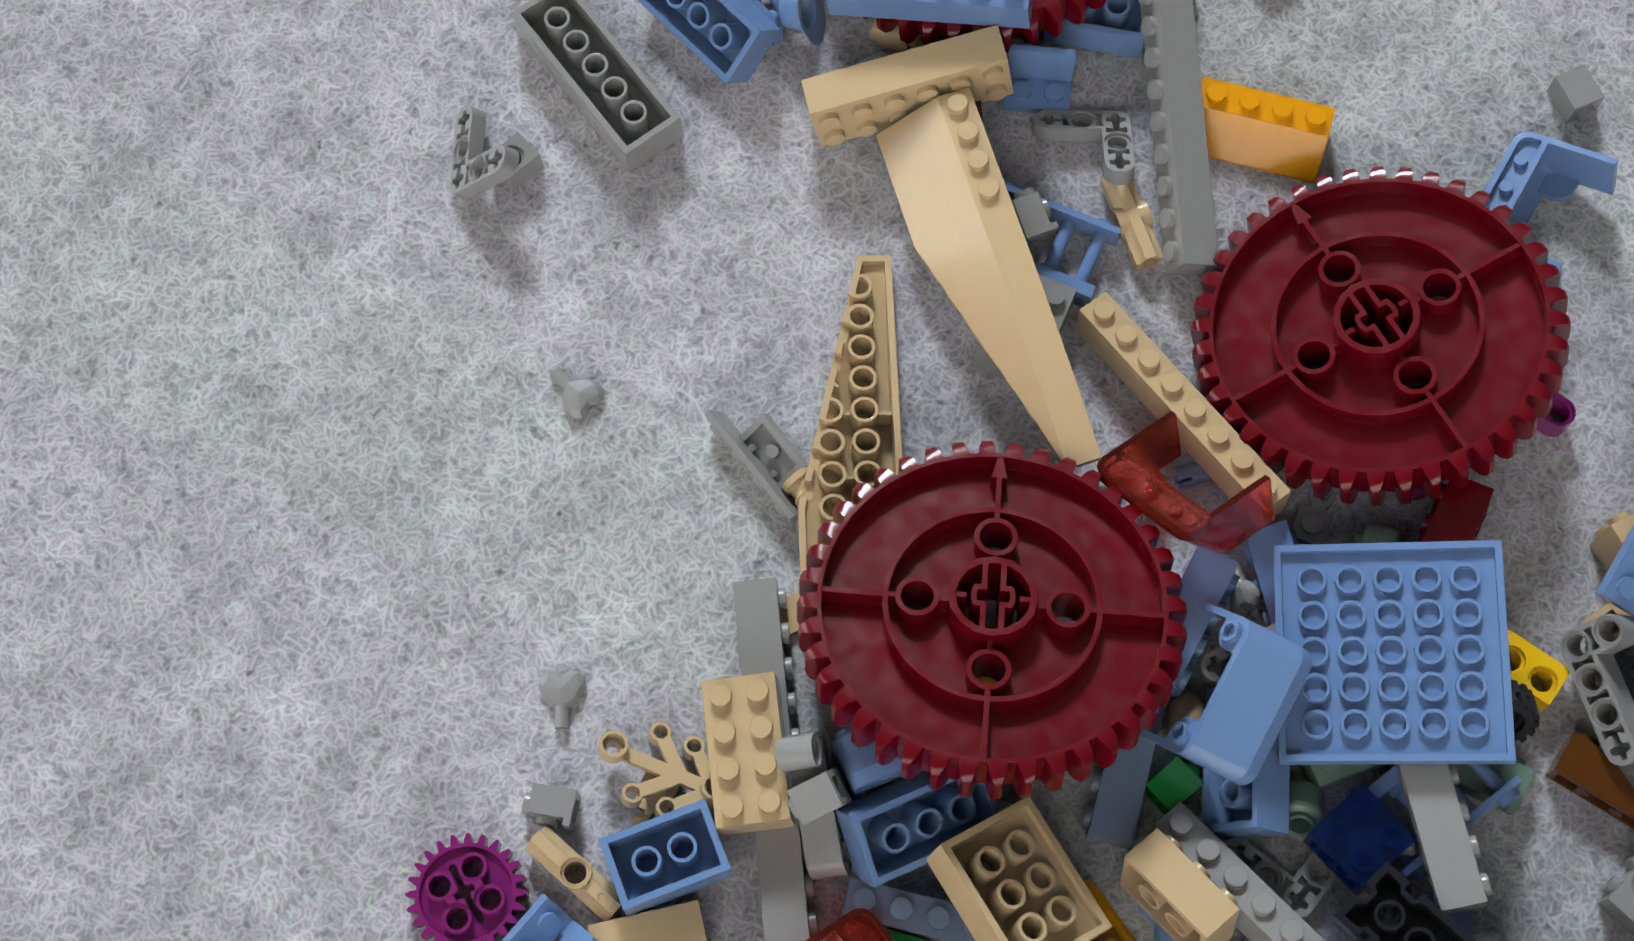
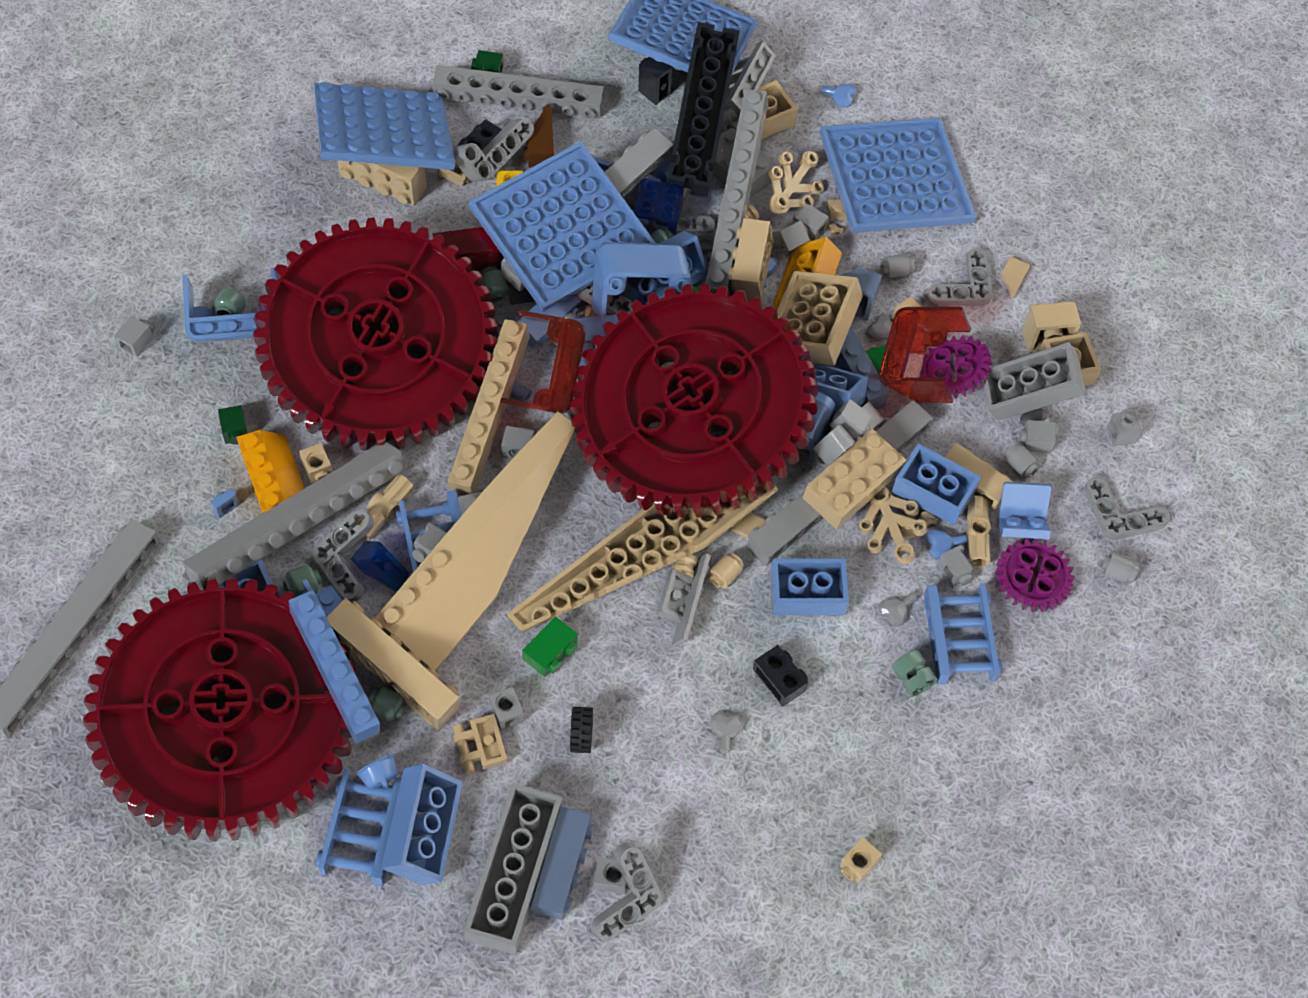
camera: 135 degrees left, 10 degrees down
(325, 424) = (864, 851): none -> tan brick
(466, 639) = (914, 673): none -> sand green wheel
(472, 703) = (941, 646): none -> medium blue fence
(567, 126) = (561, 863): none -> sand blue brick
(588, 482) = (775, 677): none -> black brick
(598, 822) = (943, 542): none -> medium blue rock
(662, 602) = (809, 586): none -> medium blue brick
(689, 233) = (581, 729): none -> black tyre
(758, 145) = (488, 743): none -> tan plate
(761, 530) = (726, 570): none -> tan brick
(773, 173) = (509, 717): none -> light grey brick
(816, 275) = (550, 647): none -> green brick
(1057, 166) = (380, 565): none -> clear blue slope
(1092, 78) = (294, 579): none -> sand green head
(1113, 417) = (514, 440): none -> light grey brick
(1252, 173) = (313, 456): none -> tan brick
(1258, 61) = (225, 502): none -> medium blue plate
(1363, 128) = (232, 423): none -> dark green brick
(1556, 221) = (228, 303): none -> sand green head

